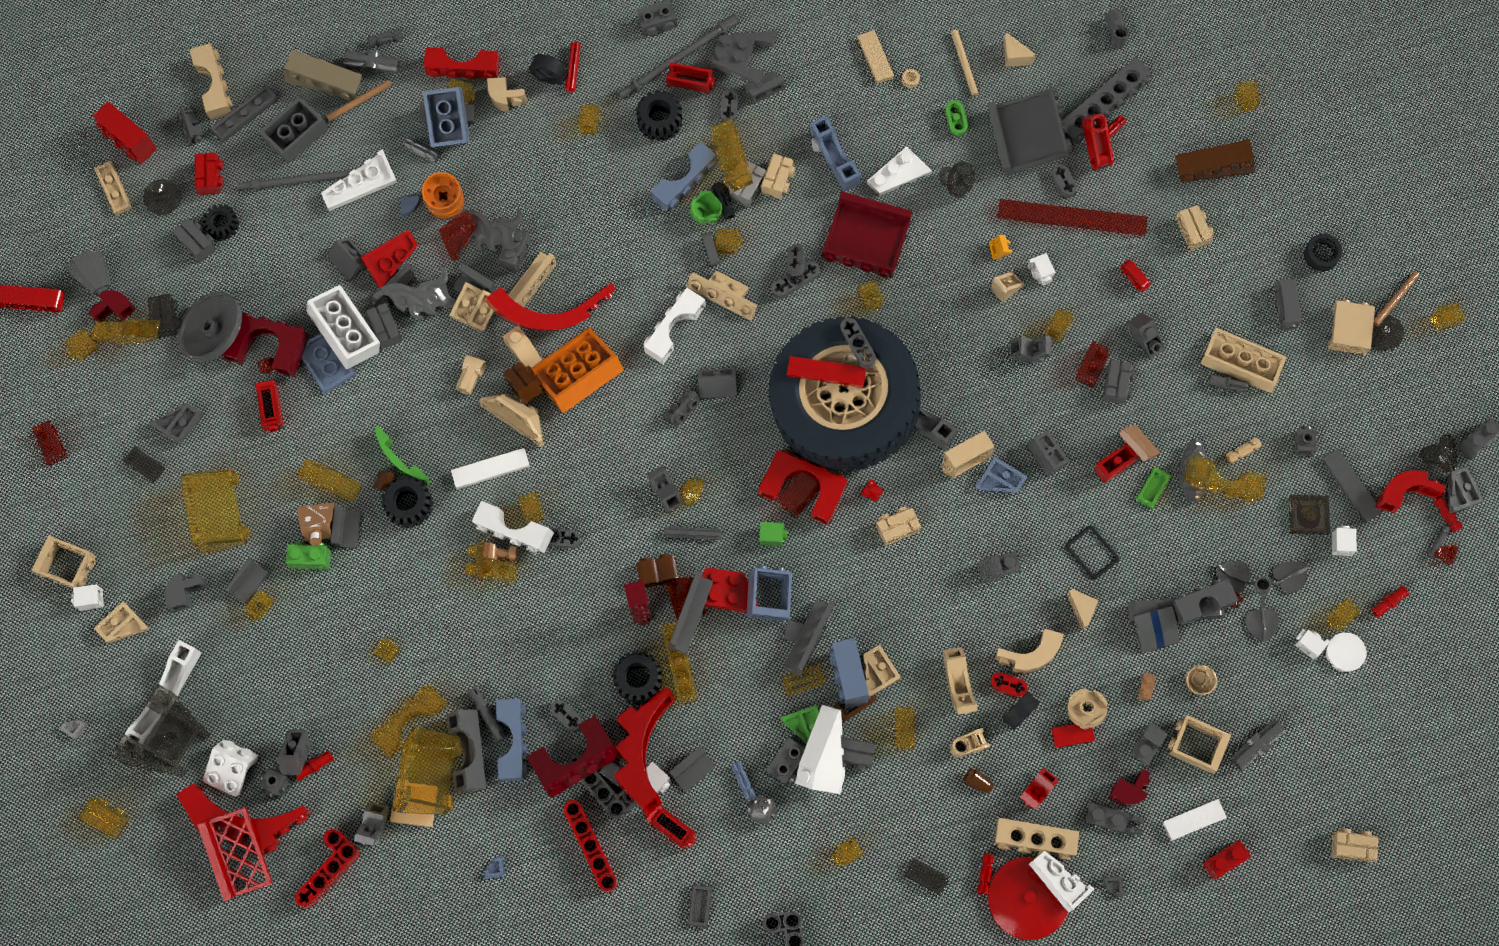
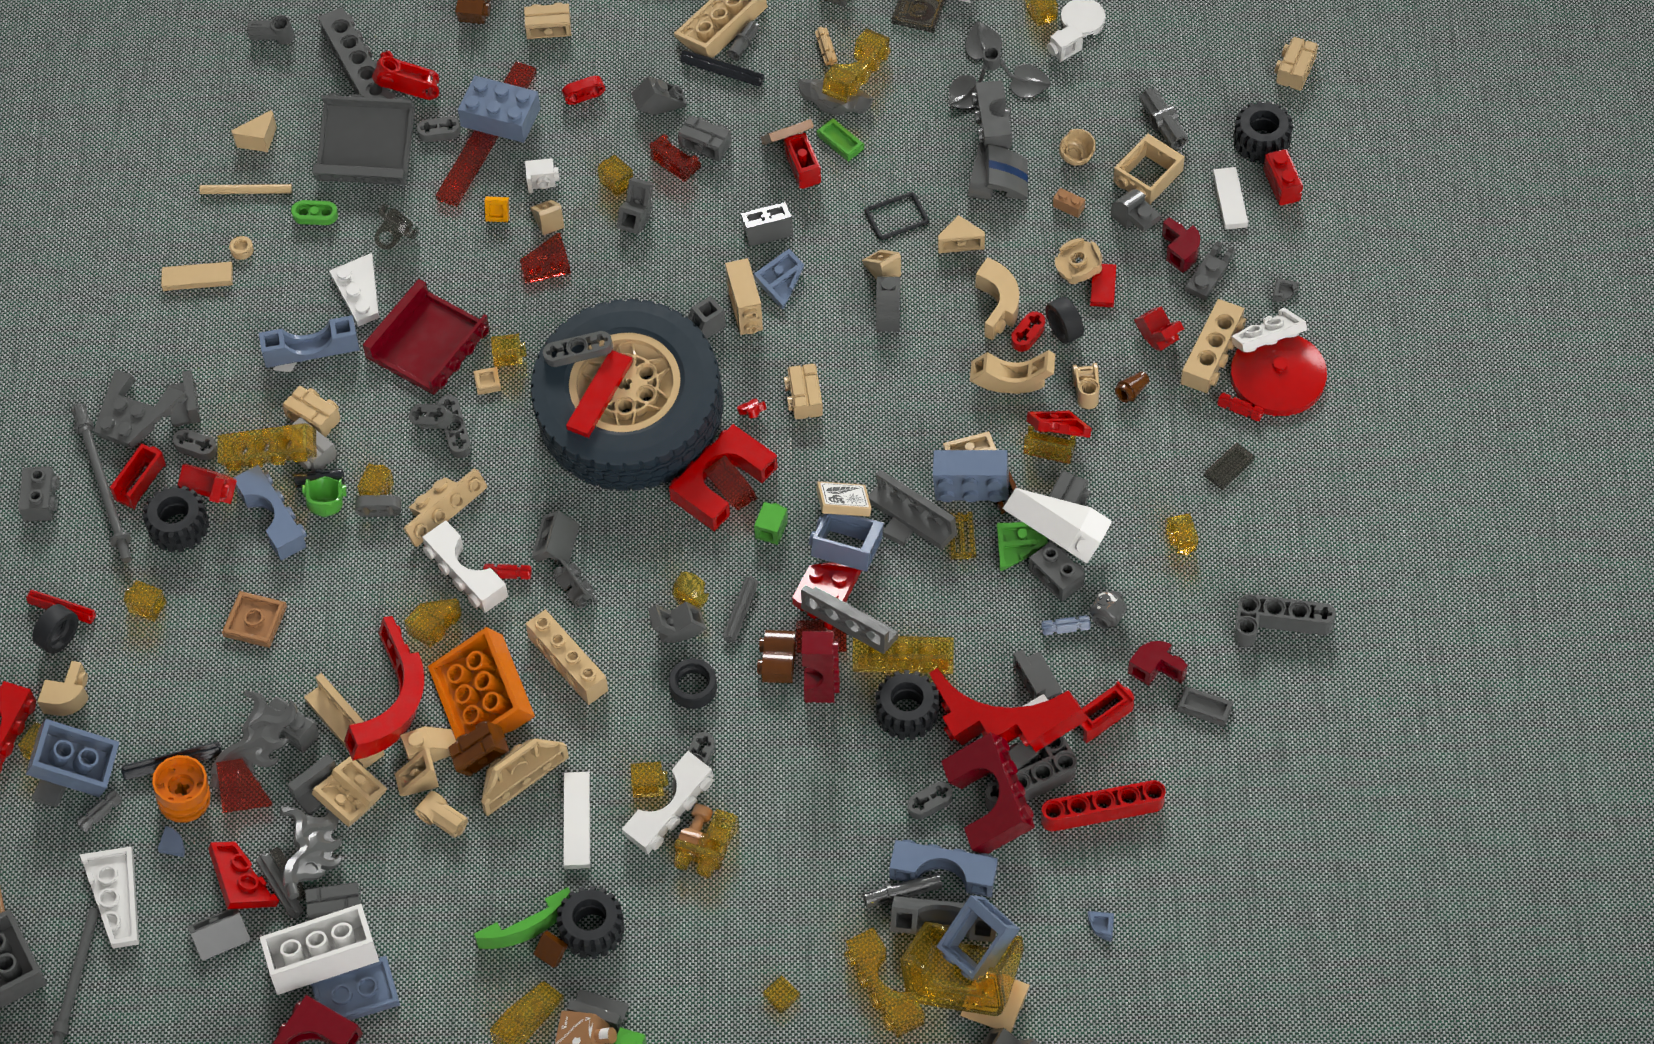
camera: 75 degrees left, 15 degrees down
(453, 785) = (975, 907): none -> sand blue window
(471, 182) = (149, 766): none -> black axle
(497, 349) = (417, 775): none -> tan slope
(597, 197) = (254, 619): none -> medium nougat tile
(616, 420) = (567, 657): none -> tan brick
(622, 316) = (432, 619): none -> clear yellow slope
(622, 531) = (693, 700): none -> black tyre
(681, 357) = (509, 571): none -> red axle
(694, 126) = (208, 483): none -> red arch
(727, 854) = (1156, 658): none -> dark red brick
(804, 582) = (843, 499): none -> tile
(843, 290) = (487, 380): none -> tan tile
(921, 730) = (1058, 422): none -> red wing
(965, 298) = (546, 261): none -> clear red wing
(1037, 553) = (884, 264): none -> tan slope
(1090, 218) = (499, 109): none -> sand blue brick
(1194, 375) = (722, 68): none -> black axle
(1280, 821) = (1262, 117): none -> black tyre

